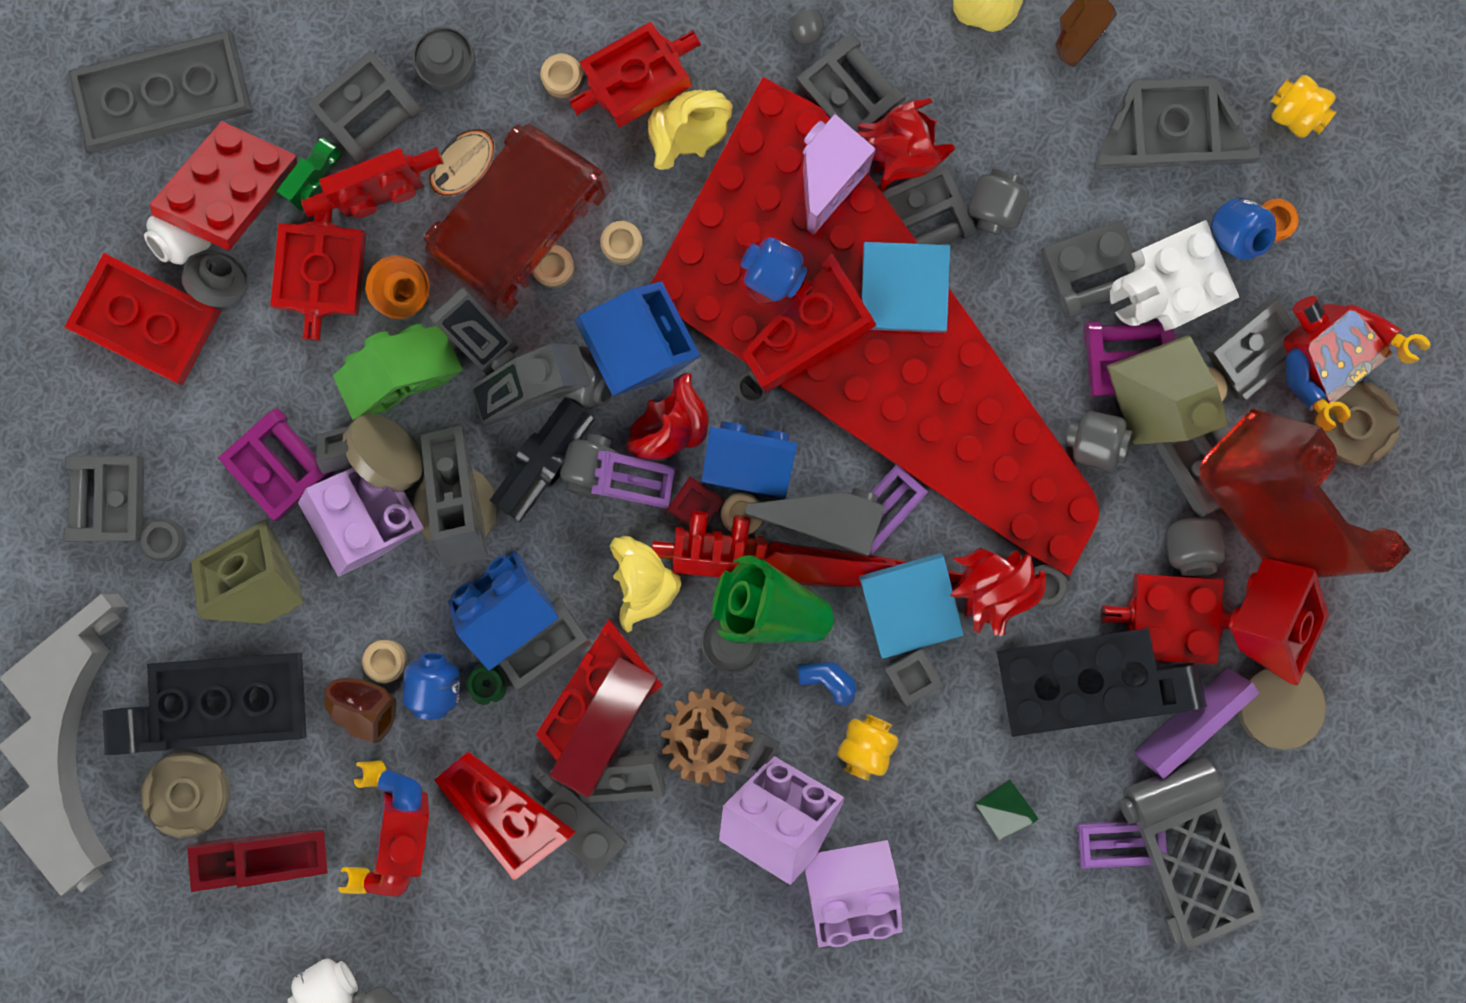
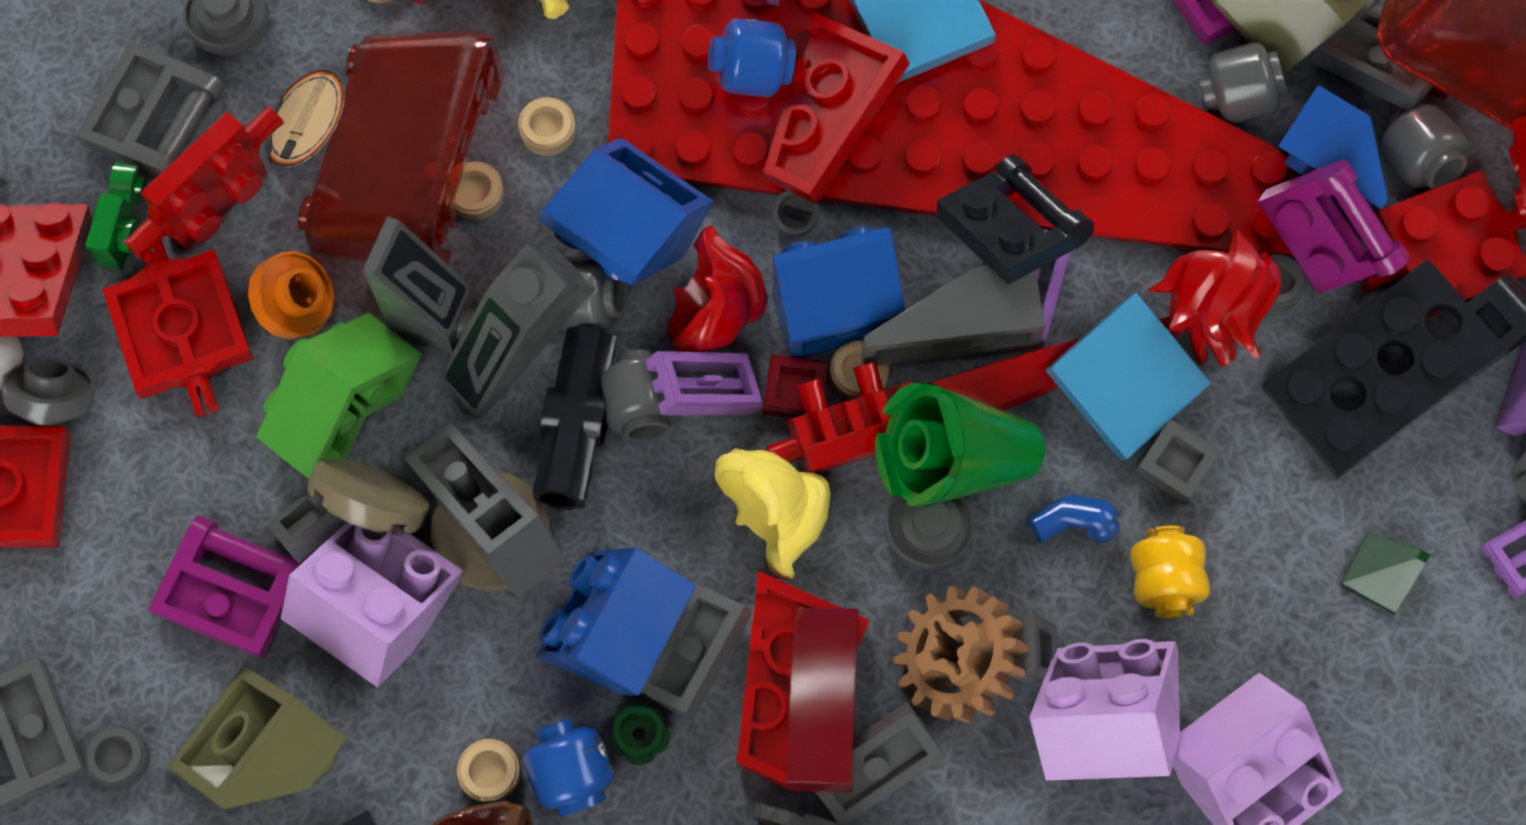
camera: 25 degrees left, 15 degrees down
(874, 472) = (1002, 231): none -> black plate
(1096, 578) = (1321, 235): none -> magenta plate
(1133, 525) = (1332, 132): none -> blue slope

